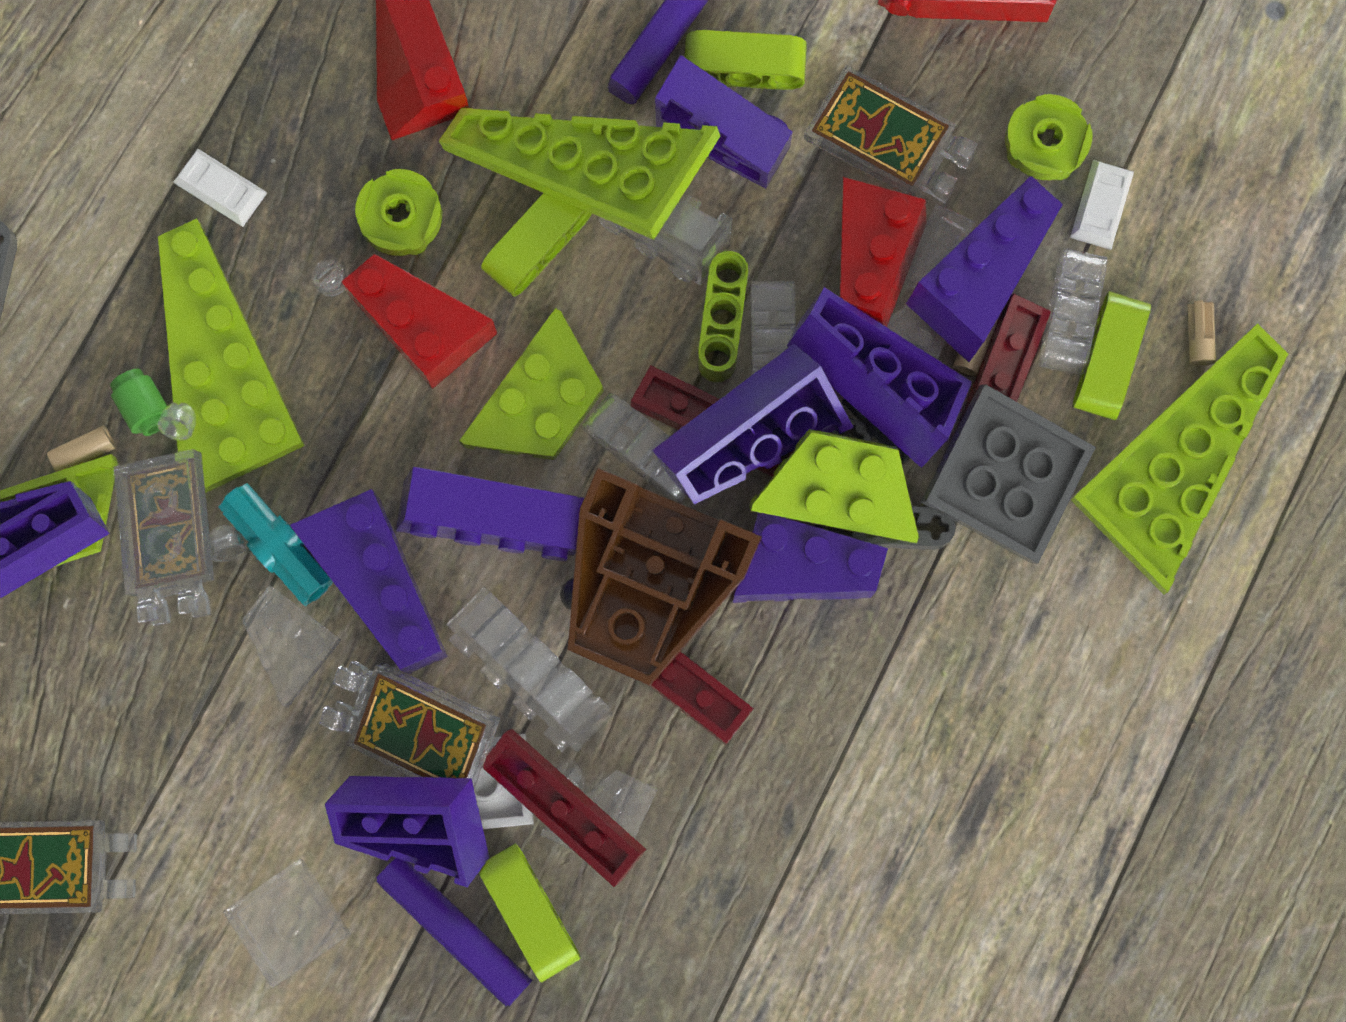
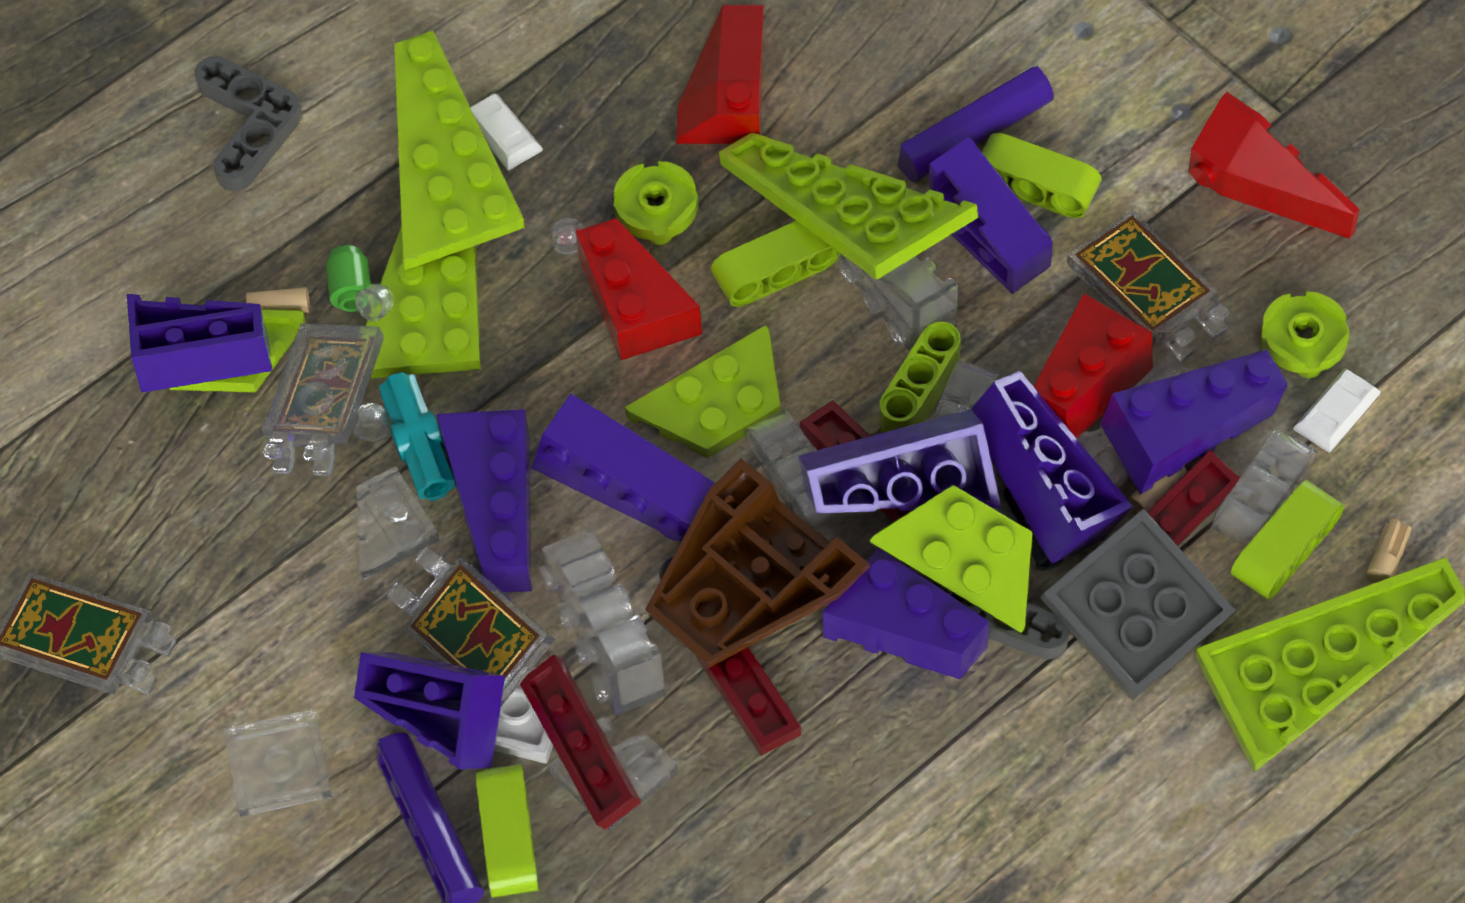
camera: 25 degrees right, 20 degrees down
(189, 259) = (447, 171): none -> lime wing

